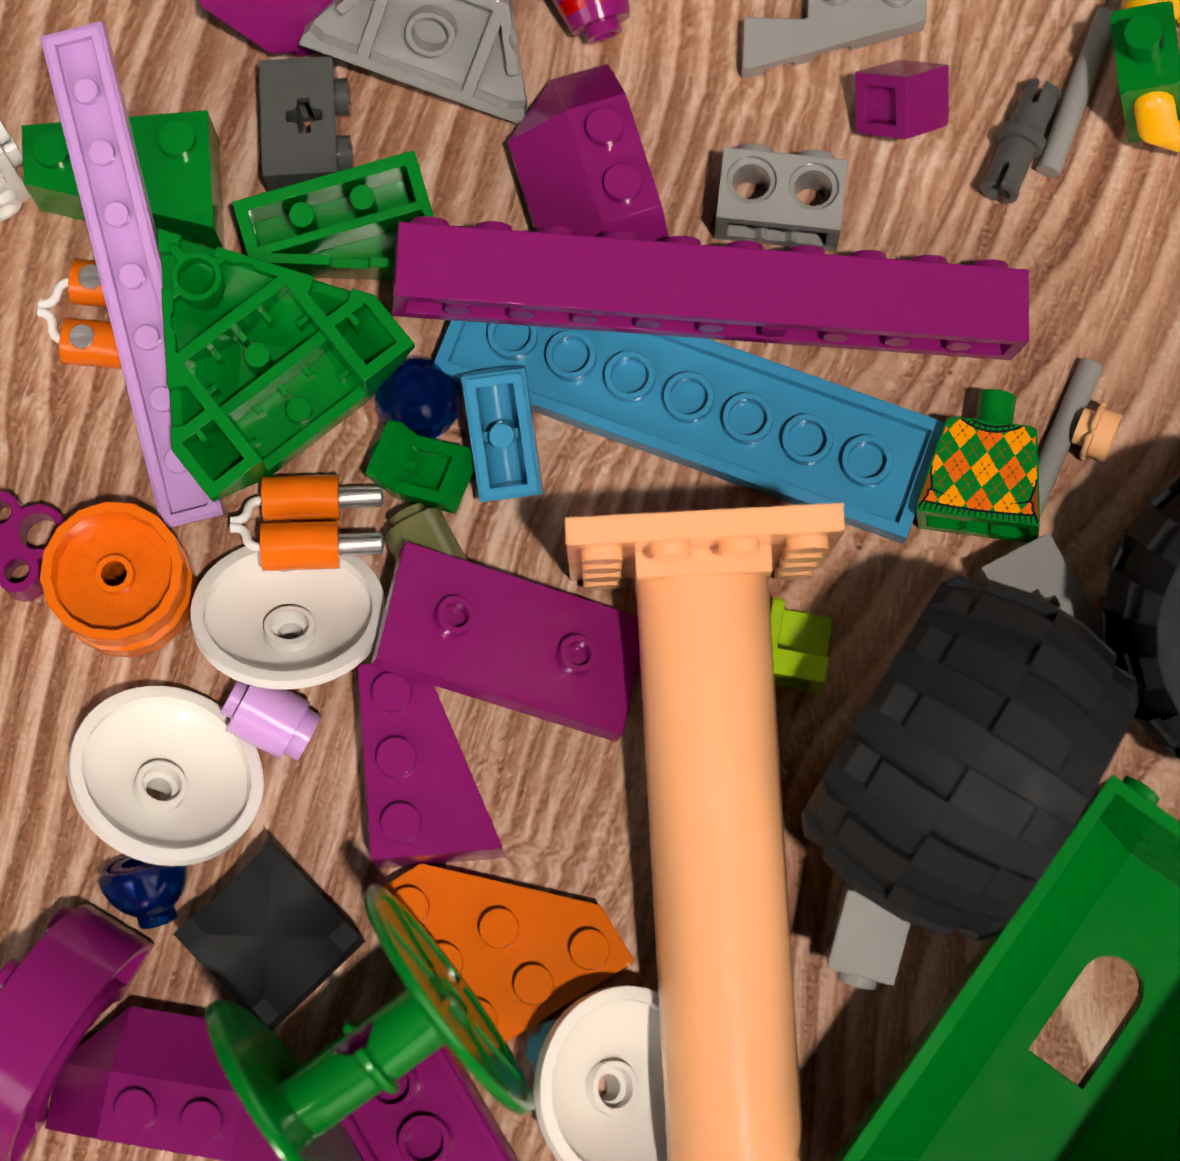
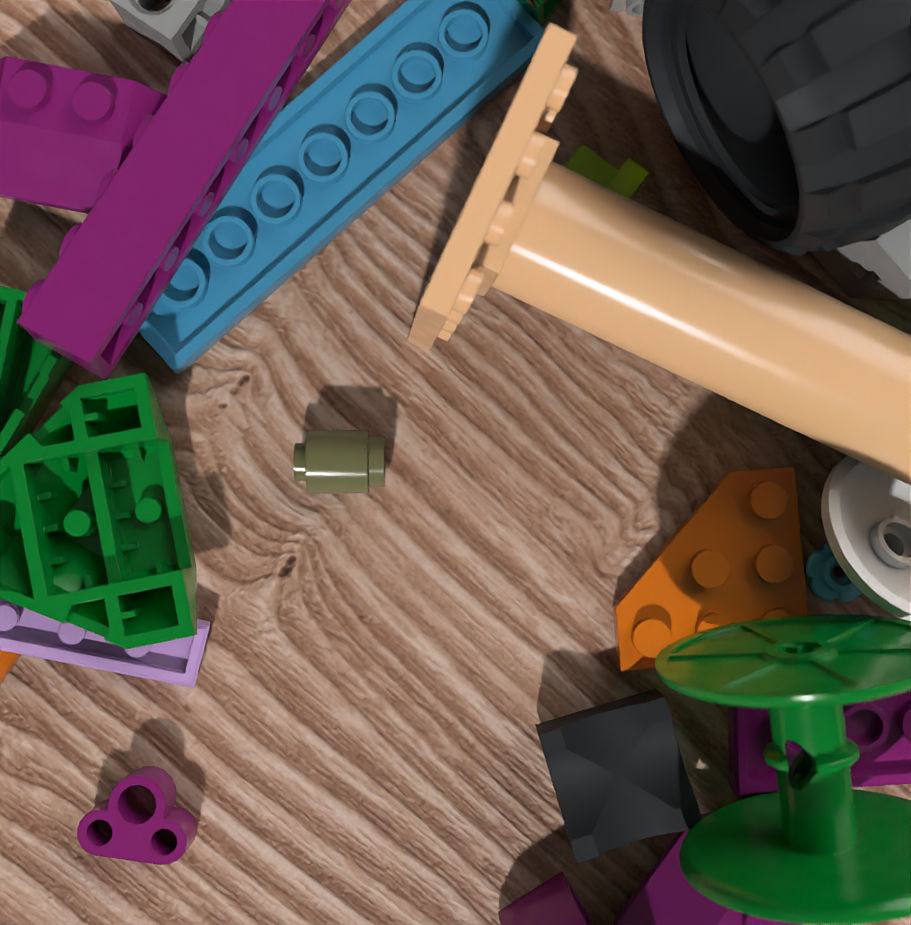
camera: 65 degrees left, 10 degrees up
(92, 554) = (184, 761): orange wheel -> none
(143, 889) = (510, 859): clear blue brick -> none
(171, 745) = (400, 767): white dish -> none
(270, 719) = (420, 676): lavender brick -> none
(286, 625) = (309, 608): white dish -> none
(303, 522) = (279, 566): orange piece -> none
(417, 778) = (543, 573): magenta wedge -> none
(419, 397) = (196, 399): clear blue brick -> none
(420, 468) = (262, 427): green bracket -> none
(502, 433) = (269, 337): dark azure brick -> none
(508, 642) = (465, 433): magenta plate -> none

